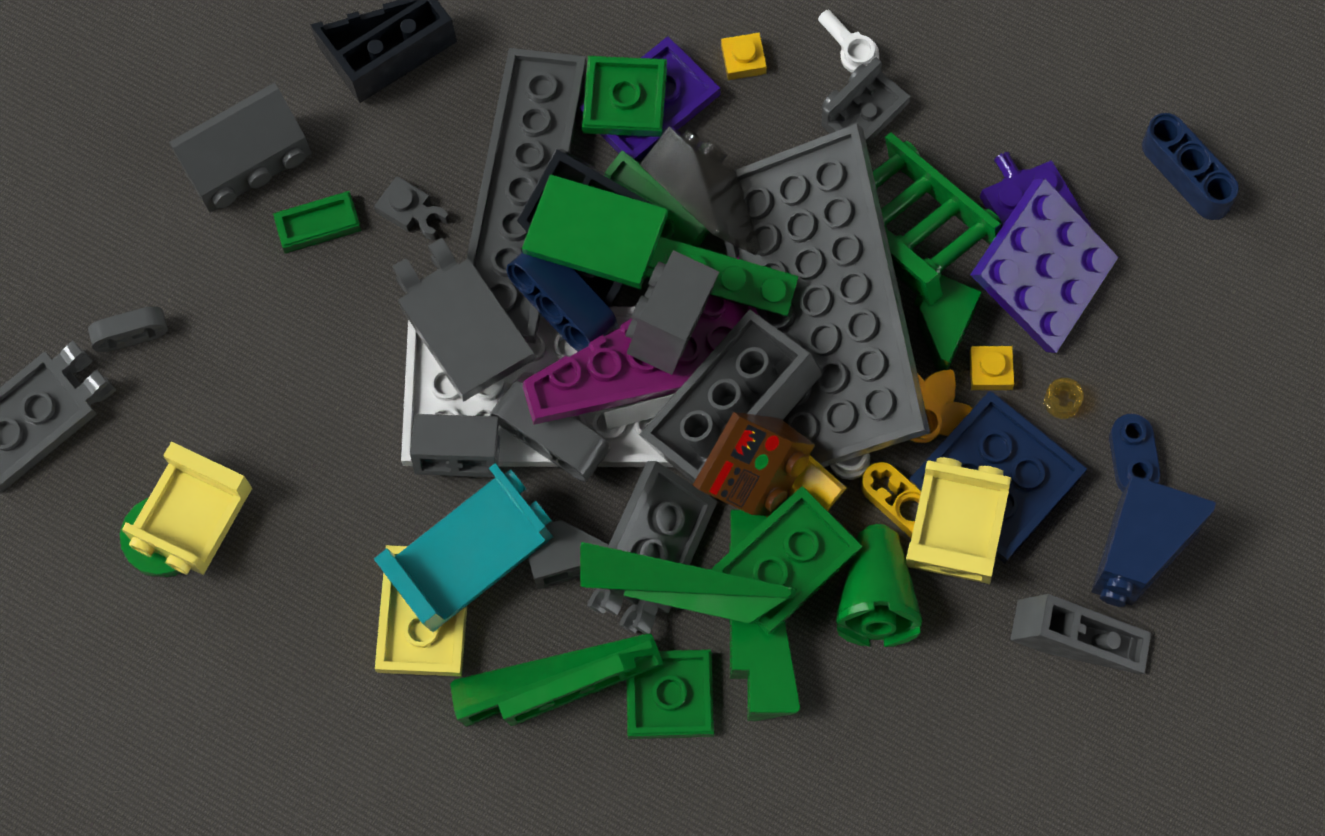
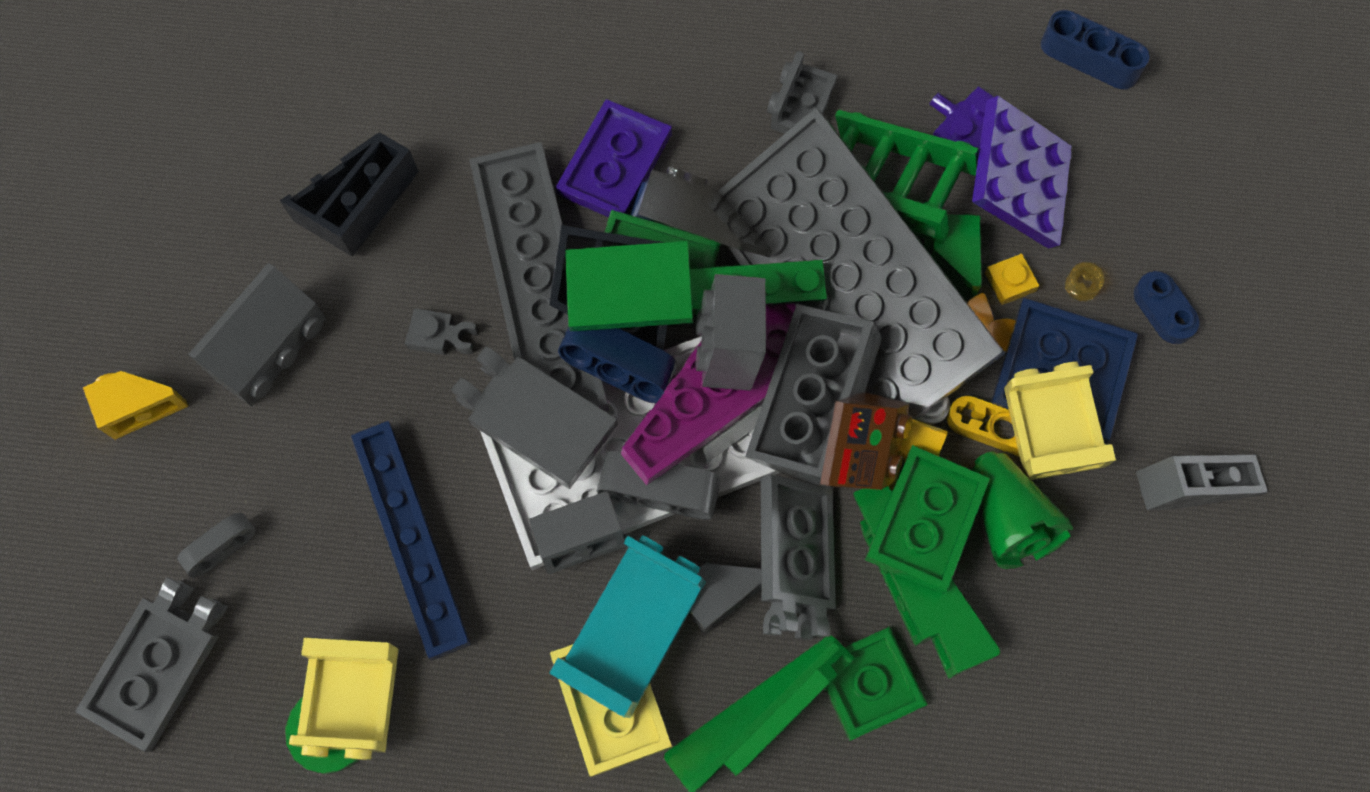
camera: 25 degrees left, 0 degrees up
(100, 166) = (129, 402): none -> yellow slope
(303, 393) = (410, 541): none -> dark blue plate
(317, 222) = (357, 377): green tile -> none
(624, 96) = (592, 163): green tile -> none
(679, 584) = (850, 580): green wedge -> none
(743, 56) = (677, 94): yellow plate -> none
(855, 48) = (771, 52): white plate -> none
(1145, 538) = (1222, 374): dark blue slope -> none

